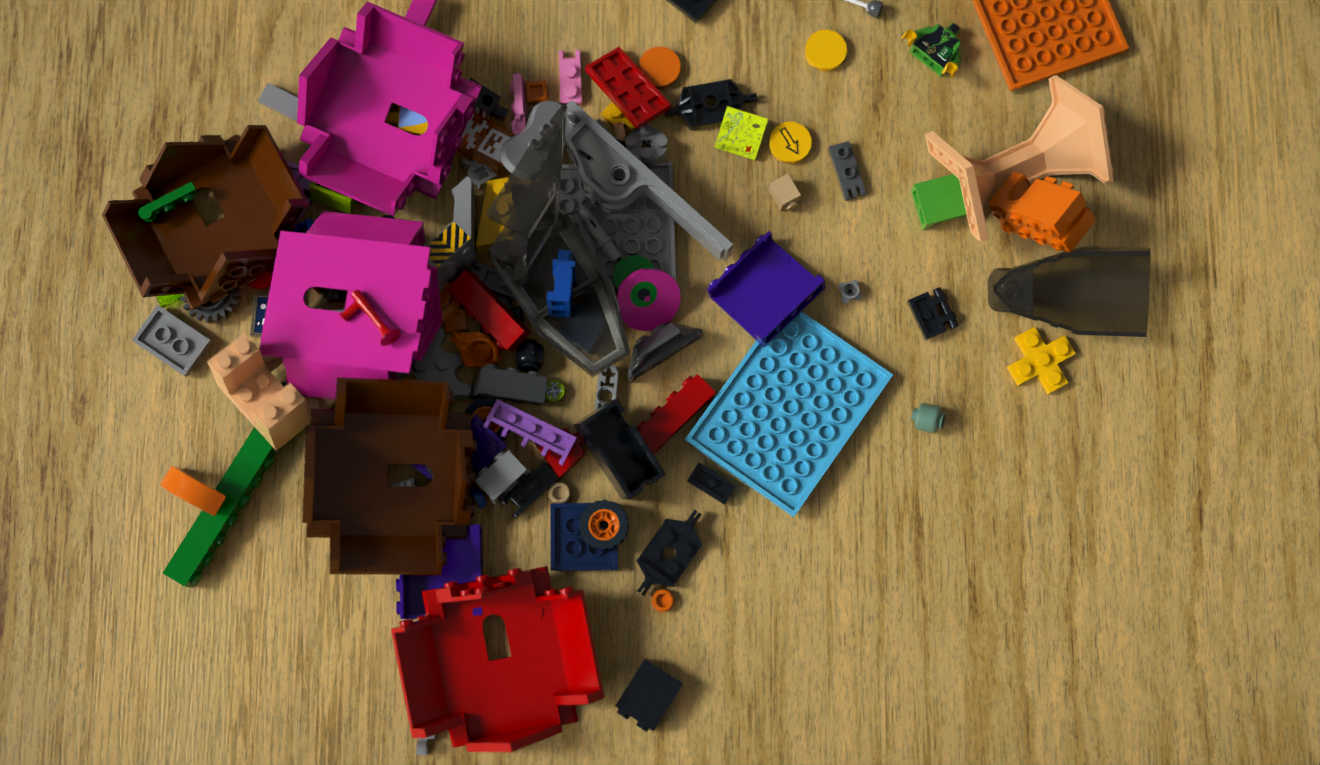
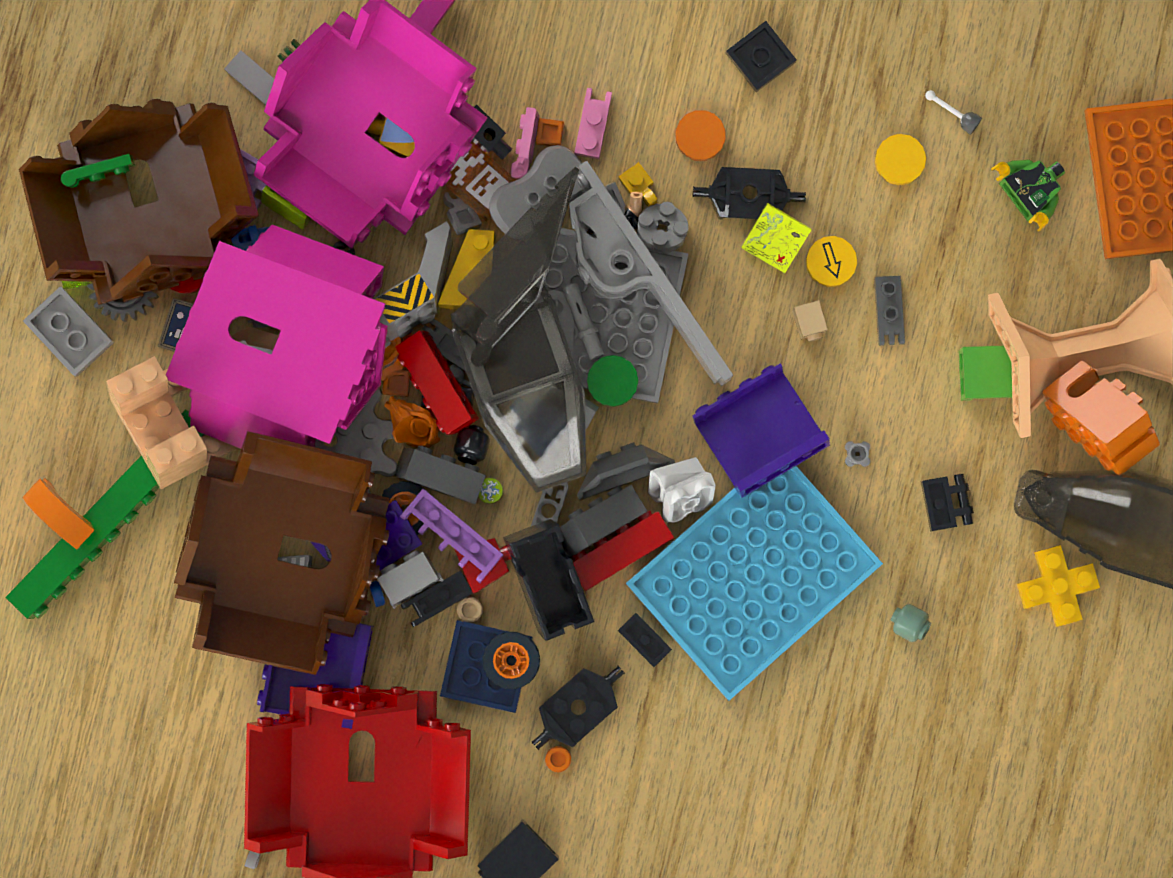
camera: 15 degrees right, 5 degrees up
(388, 335) = (292, 349): red piece -> none
(564, 274) = (531, 363): blue hips -> none
(627, 87) = (657, 153): red plate -> none
(648, 299) = (622, 411): dark pink tile -> none
(651, 391) = (601, 519): none -> dark grey wedge
(712, 351) = (682, 488): none -> white piece

